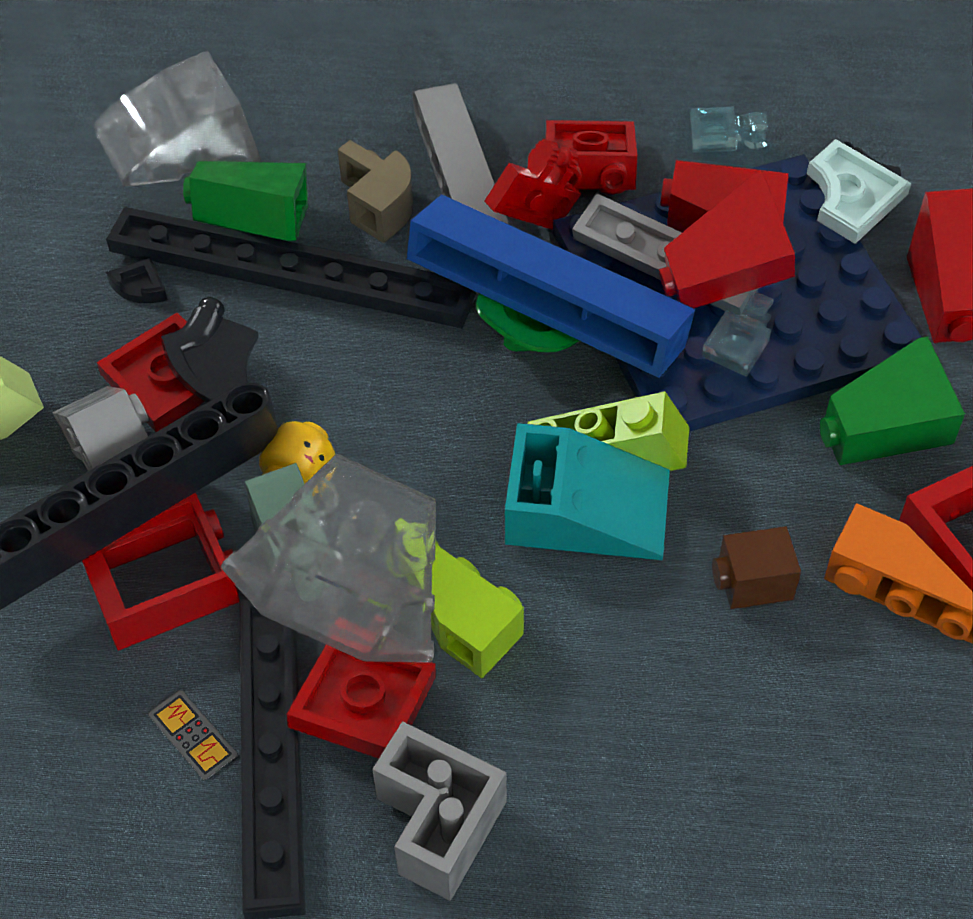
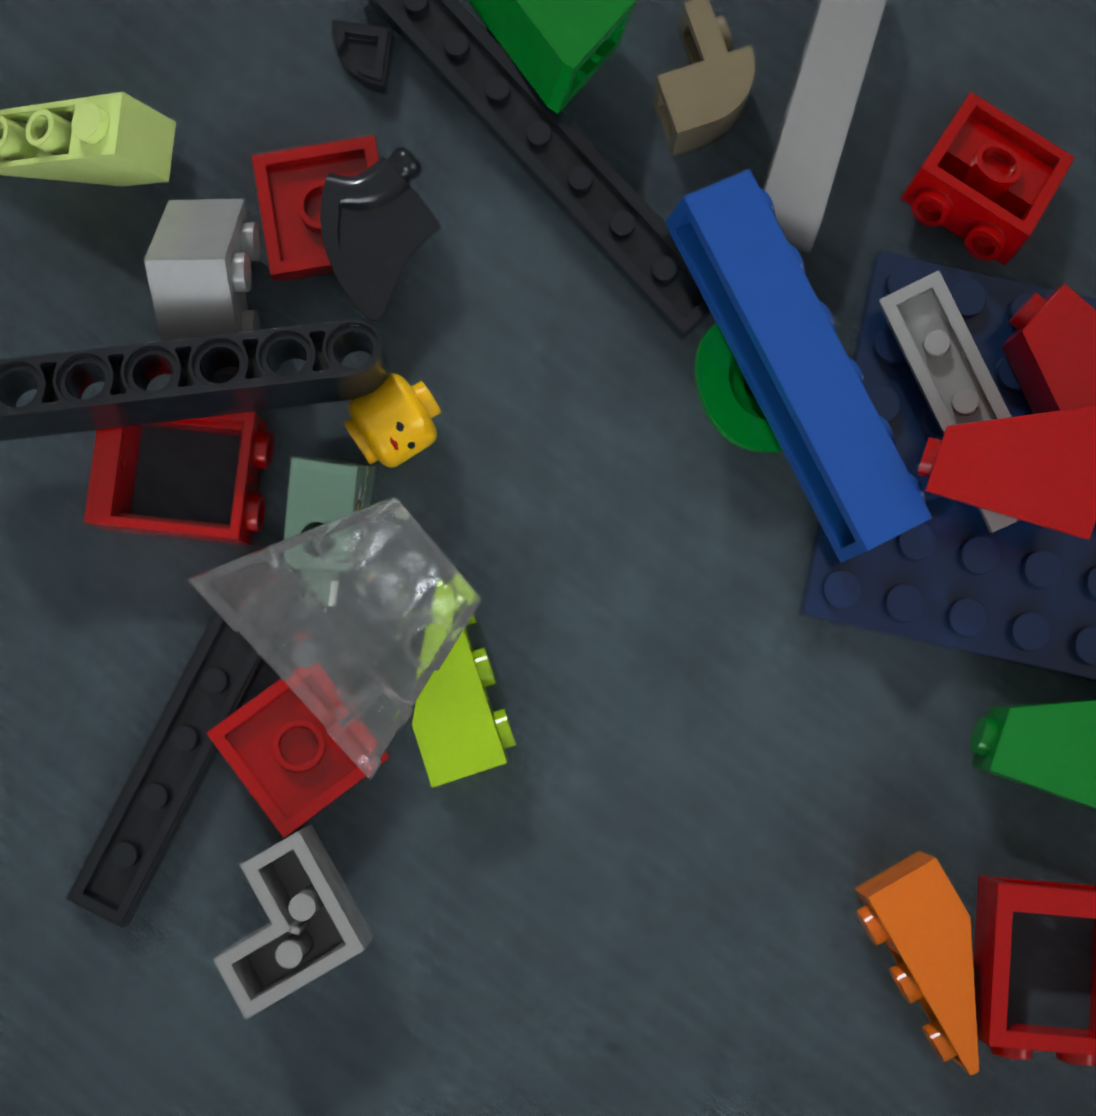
camera: 30 degrees right, 30 degrees up
(192, 734) = (125, 670): sticker -> none
(540, 191) = (880, 219): red hinge -> none
(583, 495) = (666, 657): teal slope -> none
(640, 425) = (739, 594): lime slope -> none
(740, 339) = (965, 570): clear light blue plate -> none
(757, 567) = (780, 858): reddish brown brick -> none

